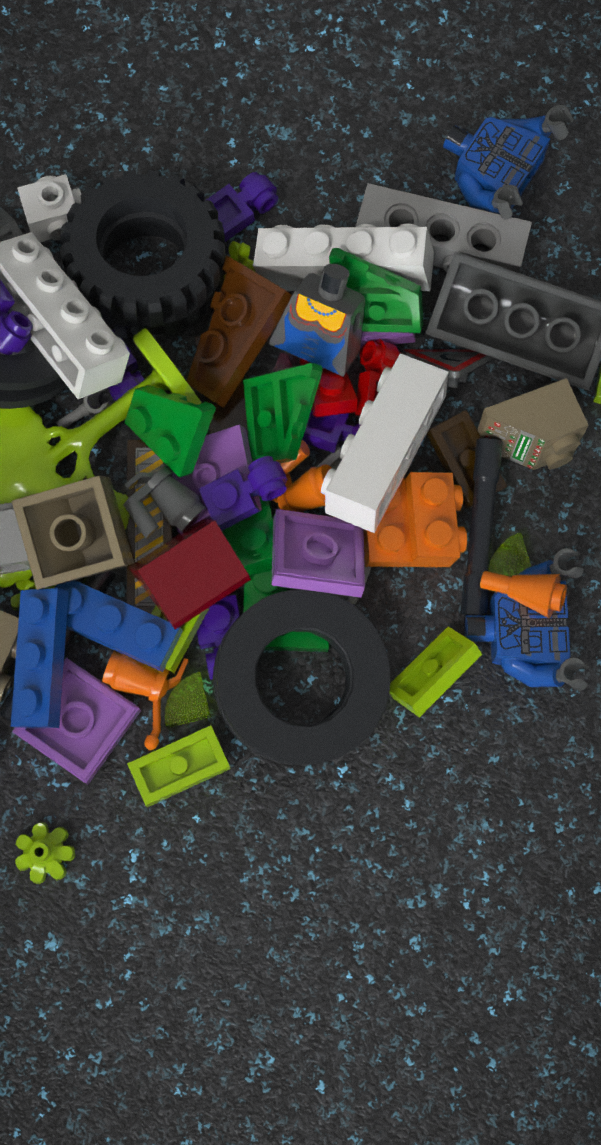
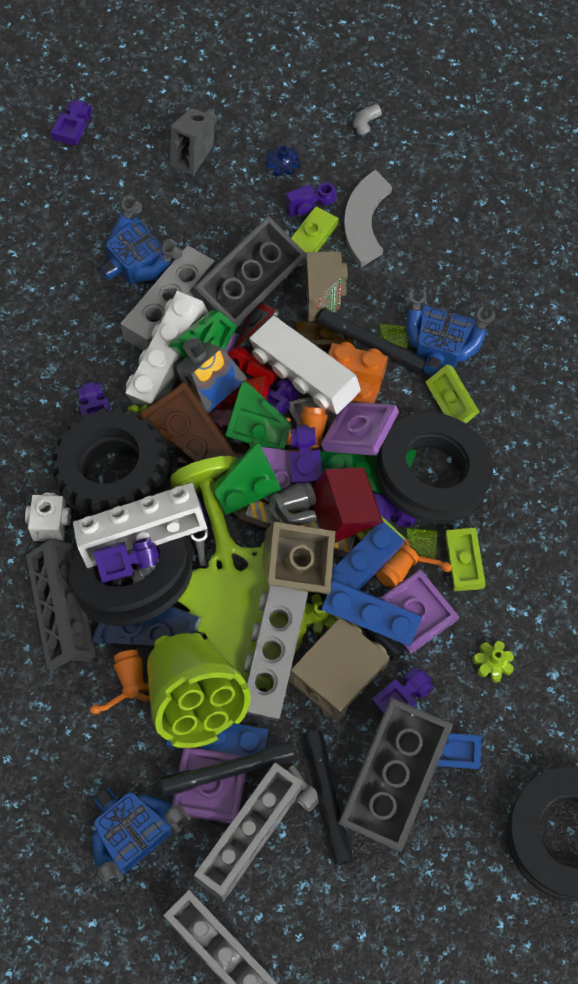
camera: 70 degrees left, 10 degrees down
(536, 591) = (429, 318): orange cone -> none

